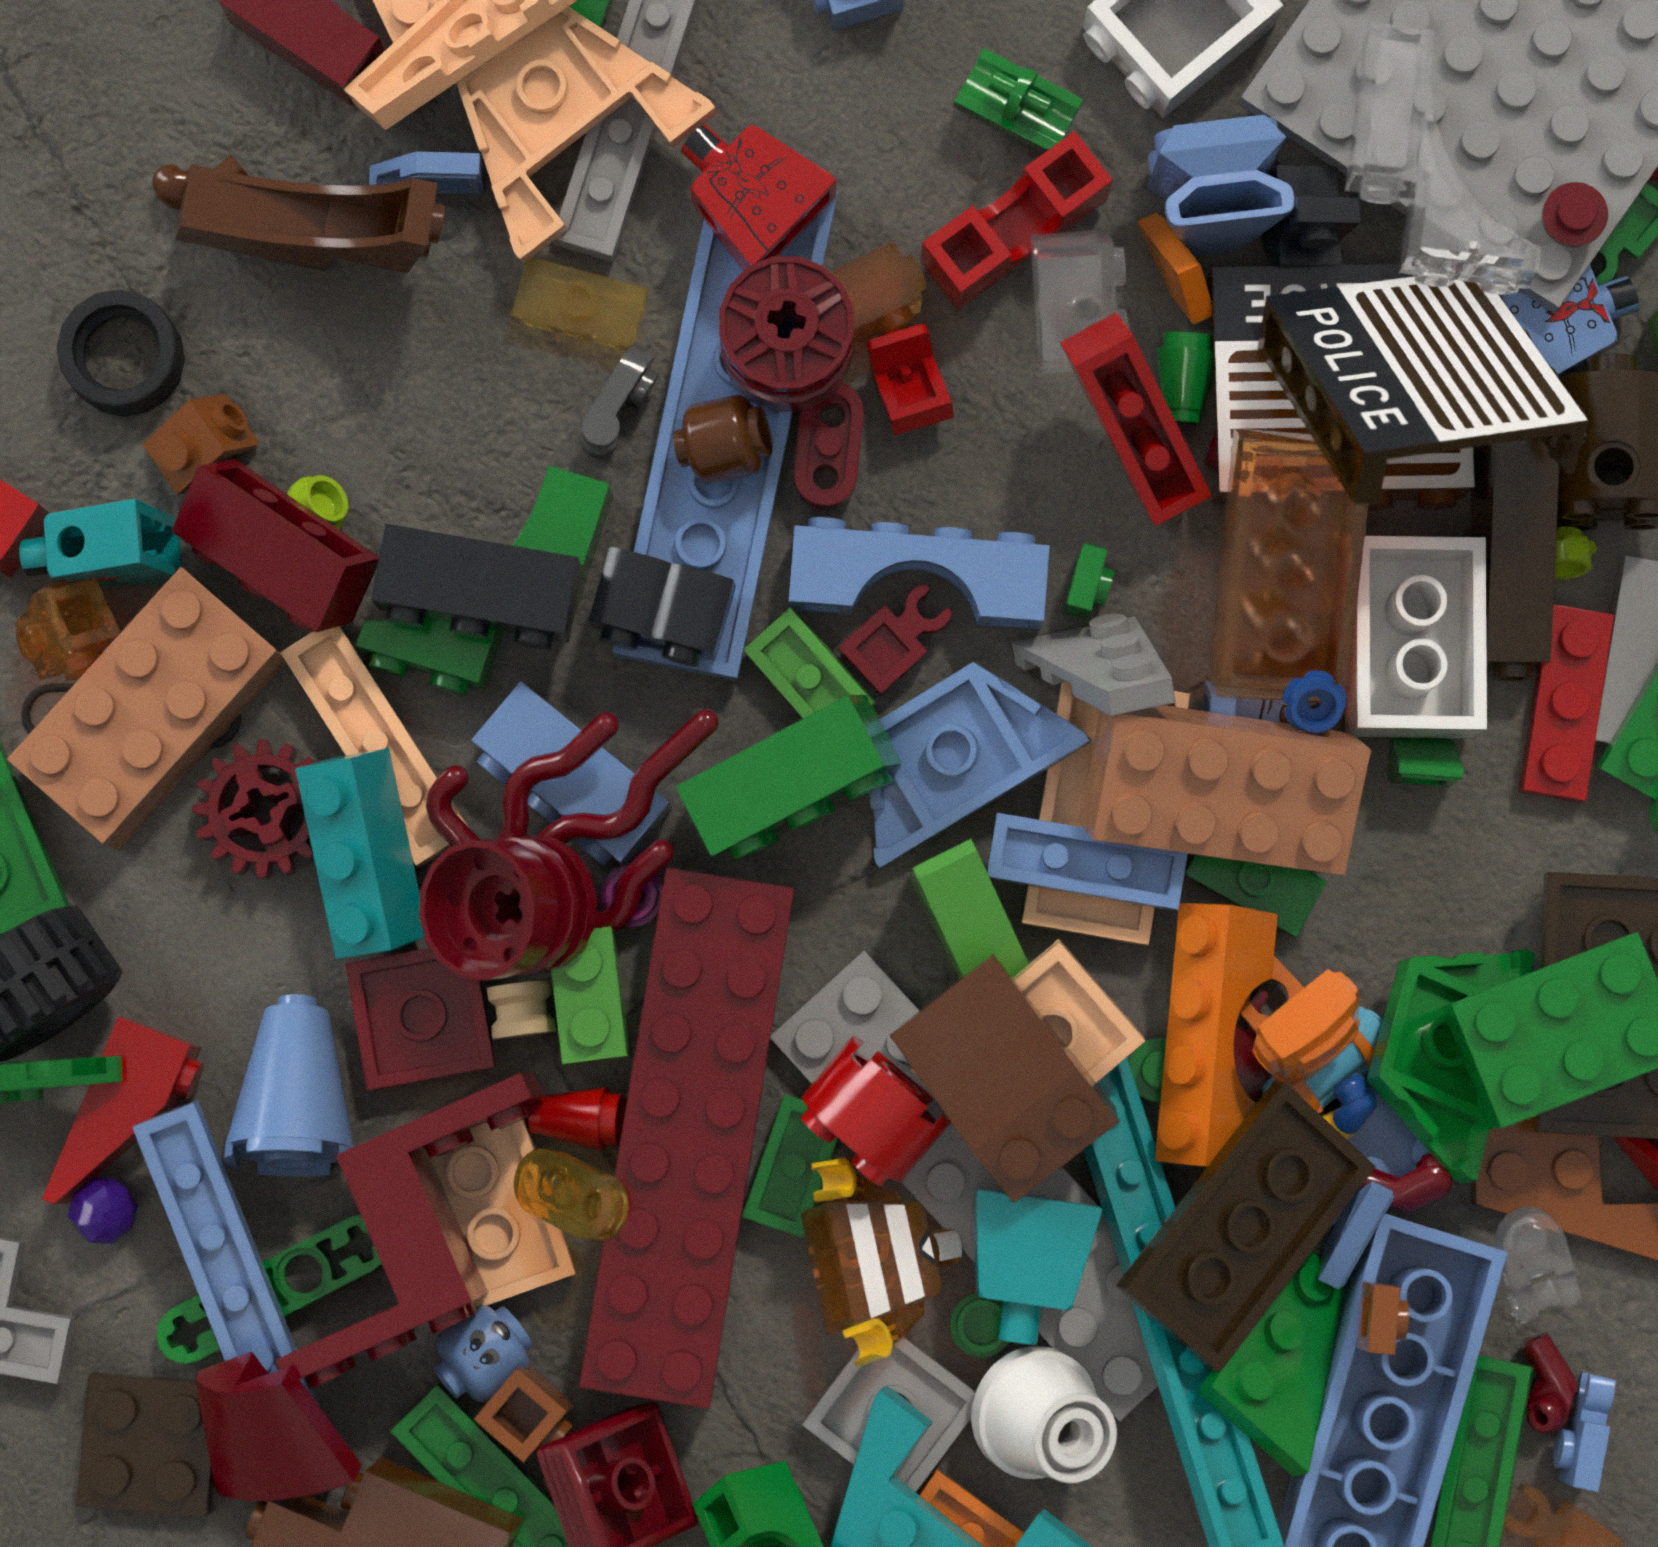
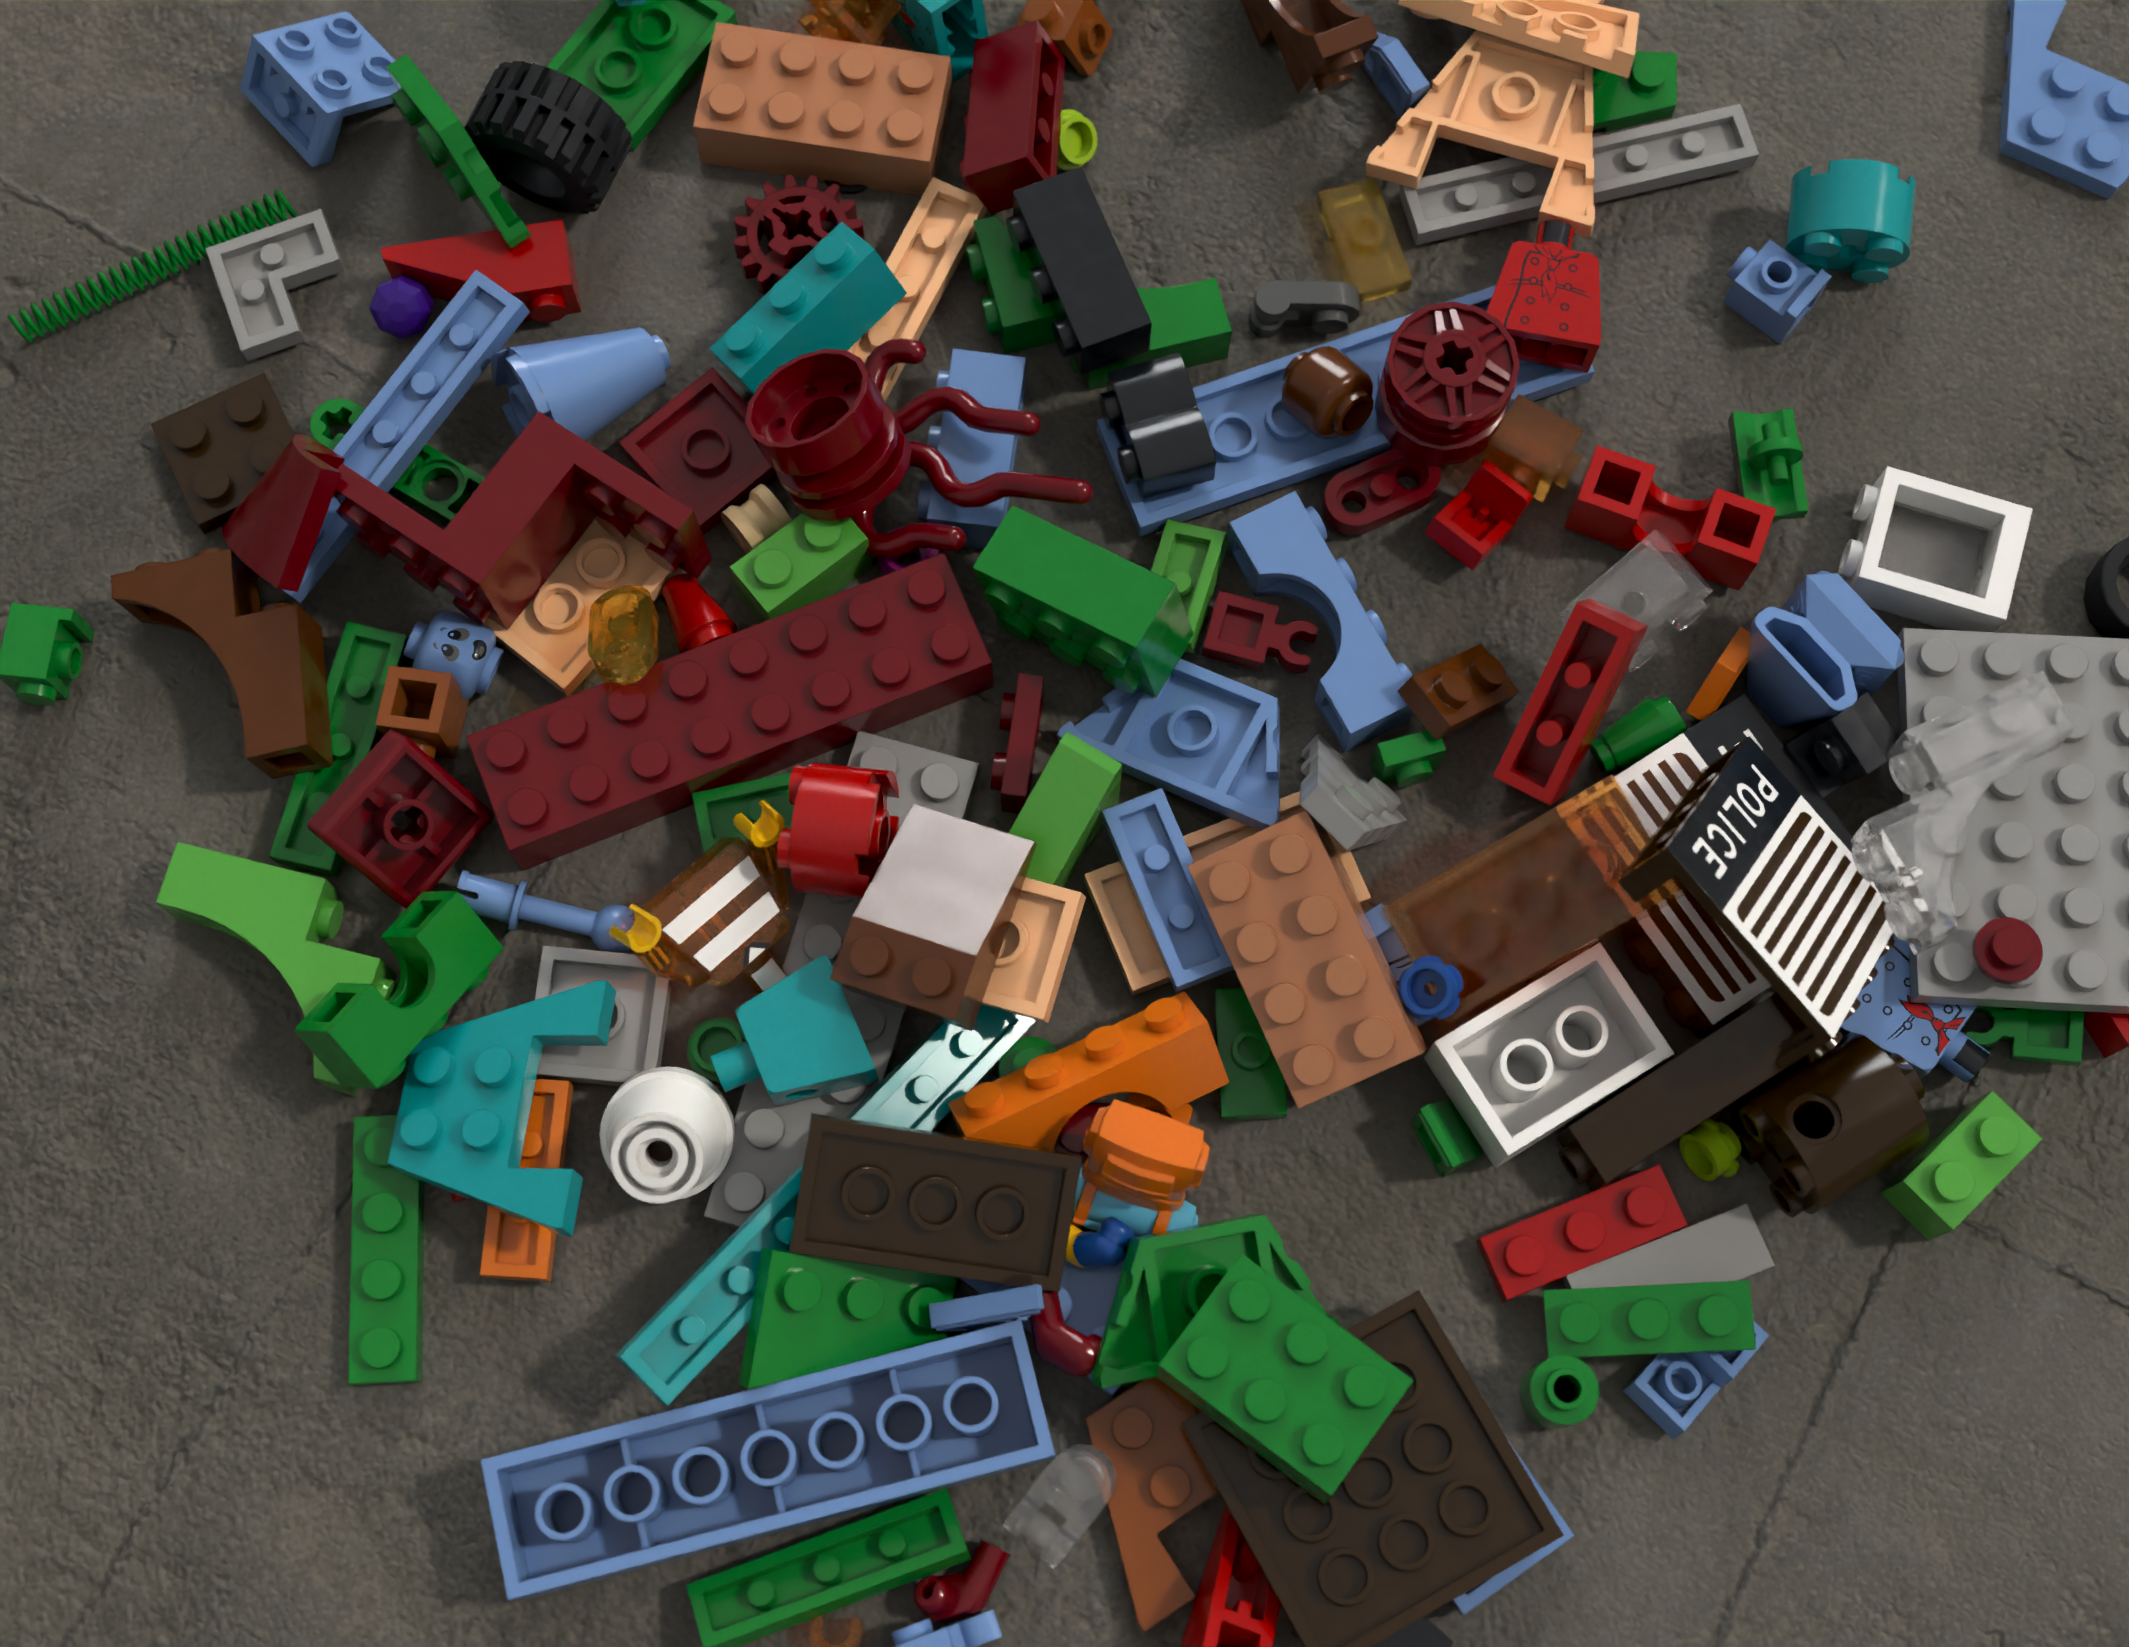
camera: 60 degrees right, 10 degrees down
(812, 1356) = (510, 903): none -> medium blue pin
(848, 888) = (1022, 717): none -> dark red plate
(1058, 503) = (1458, 691): none -> reddish brown plate
(1382, 1318) = (924, 1367): dark orange plate -> none

